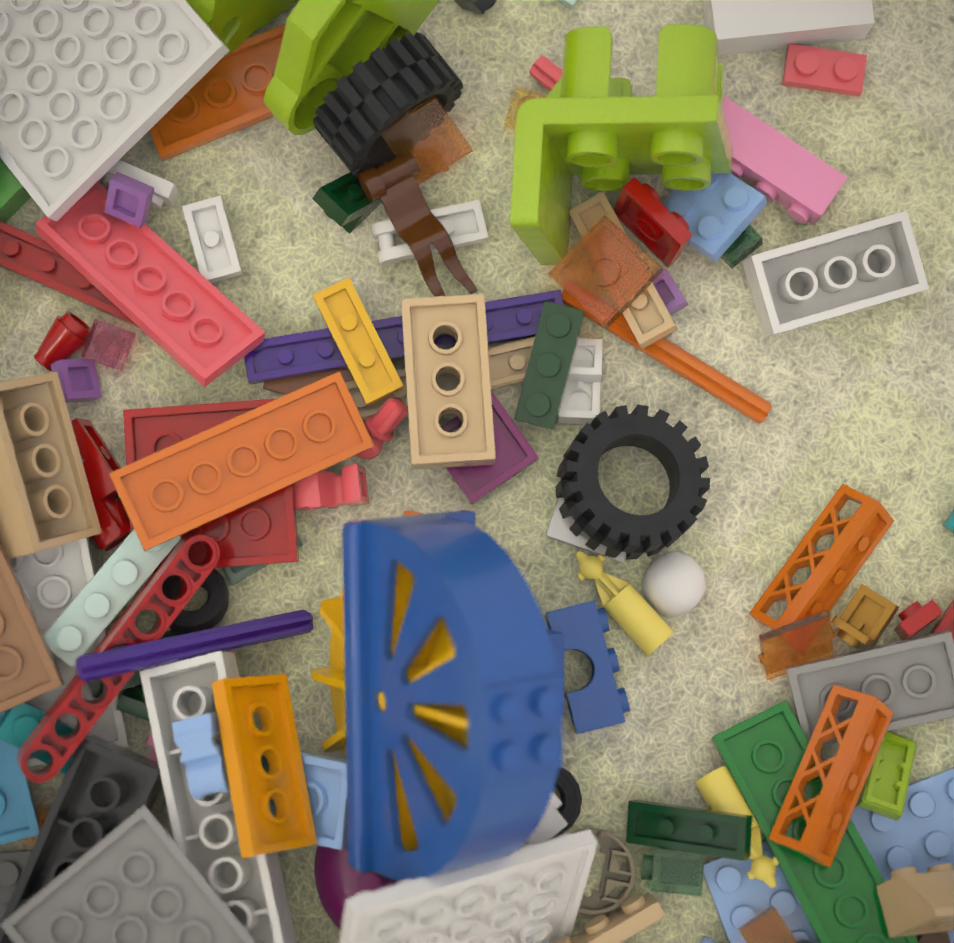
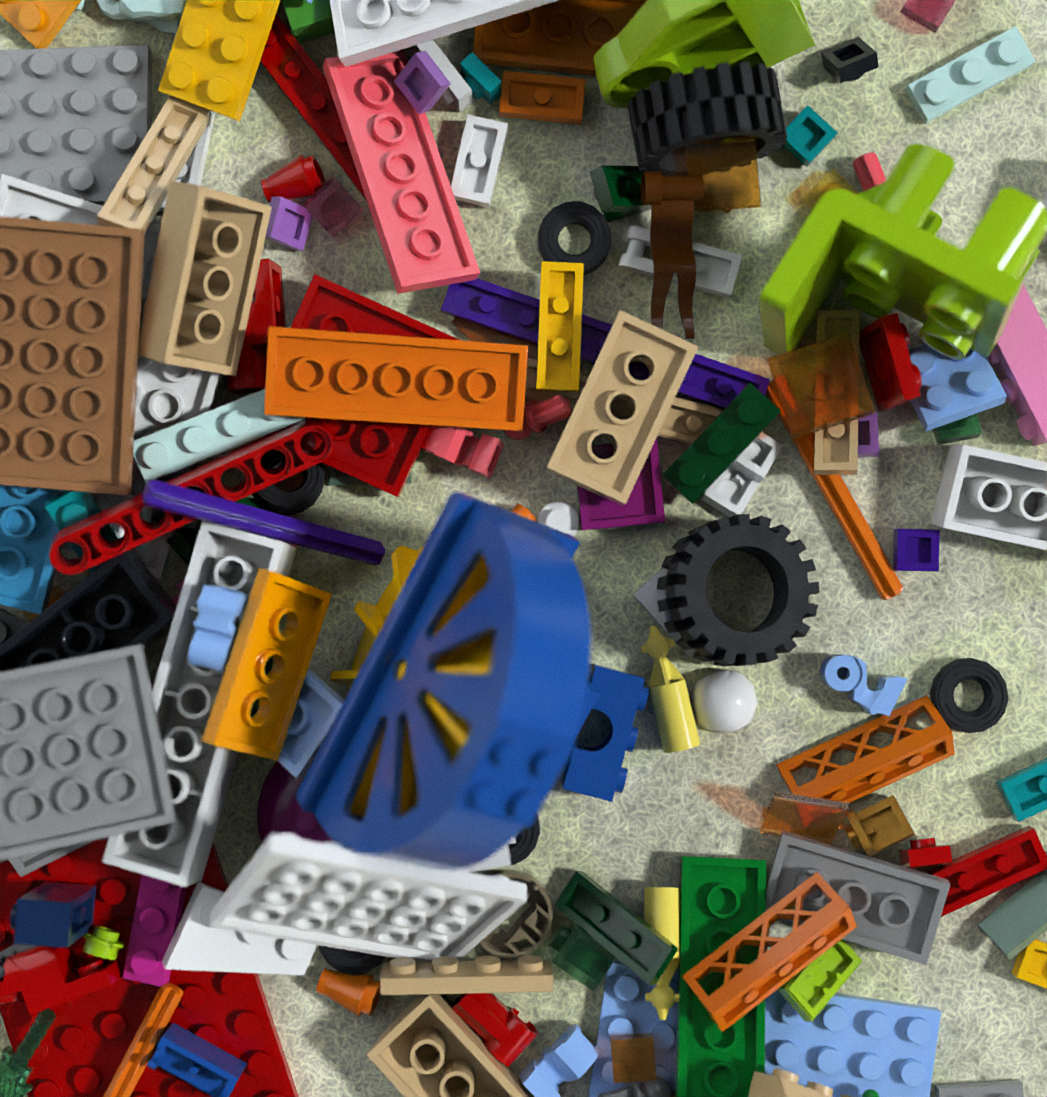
camera: 30 degrees right, 5 degrees up
(177, 171) = (480, 79): none -> teal plate
(238, 158) = (542, 97): none -> orange plate
(324, 238) = (581, 214): none -> black tyre
(446, 501) = (560, 517): none -> white plate
(480, 71) = (808, 136): none -> teal plate
(764, 366) = (916, 550): none -> dark purple plate
(766, 501) = (850, 675): none -> light blue leg
(897, 449) = (994, 699): none -> black tyre

